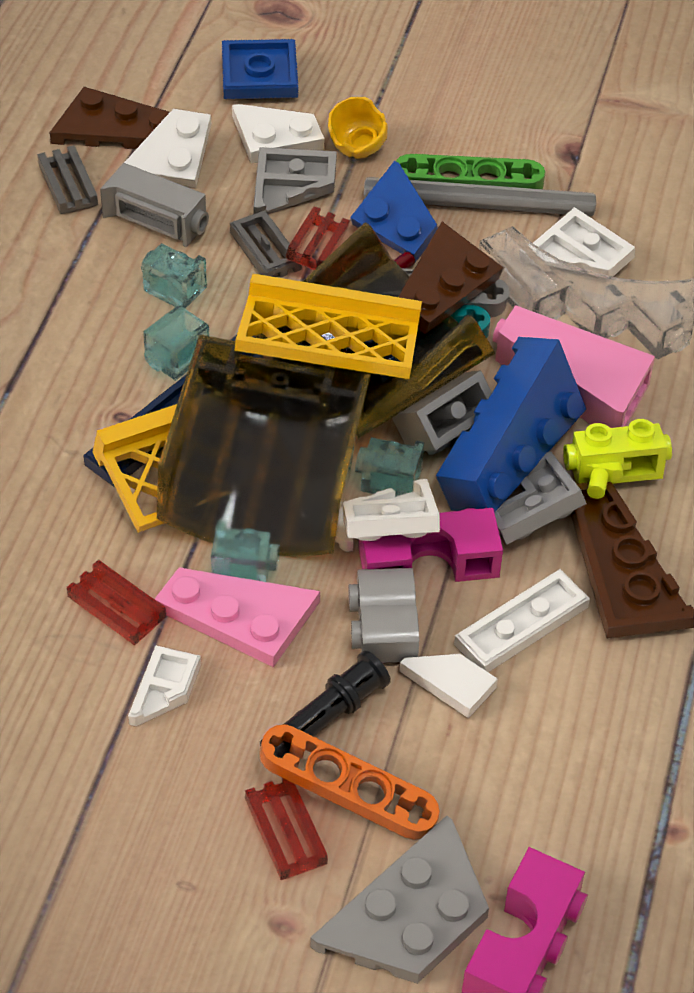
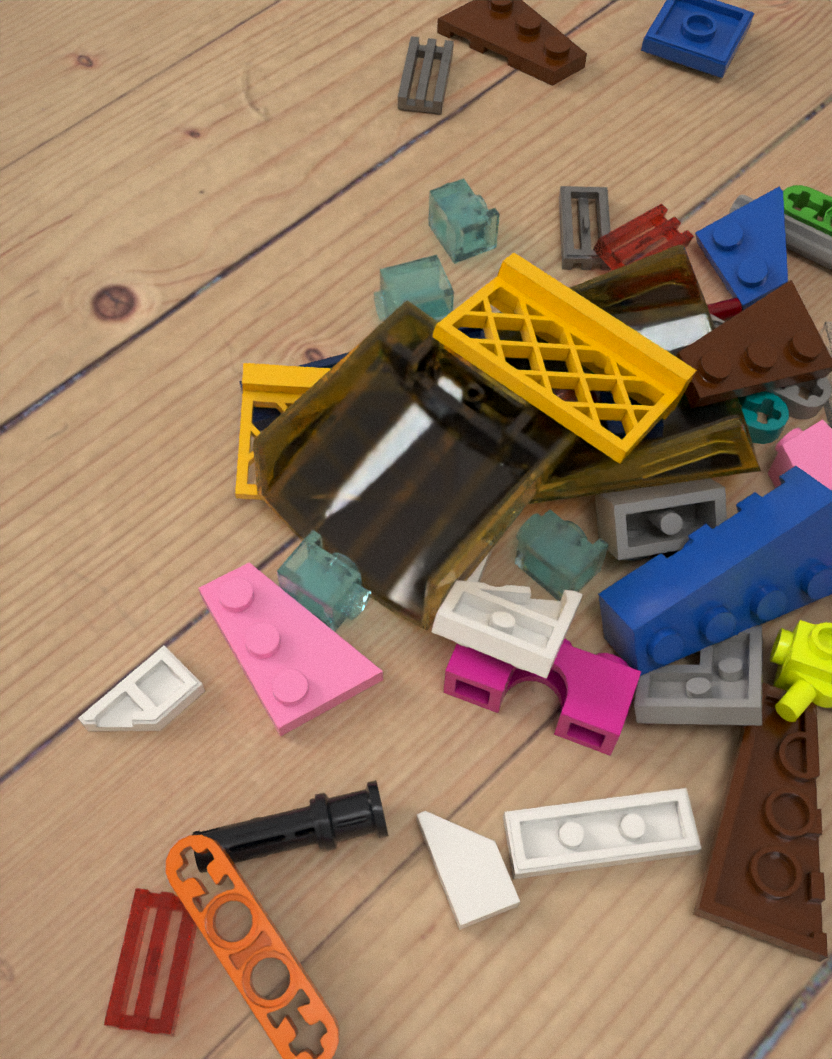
camera: 30 degrees right, 10 degrees up
(105, 575) = (151, 531): clear red tile -> none
(155, 203) = (492, 133): light grey window -> none
(175, 147) = (549, 83): white wing -> none
(275, 129) = (675, 108): white wing -> none
(292, 177) = (659, 162): light grey wing -> none
(357, 127) = (763, 133): yellow hair -> none
(385, 613) = (435, 744): light grey brick -> none

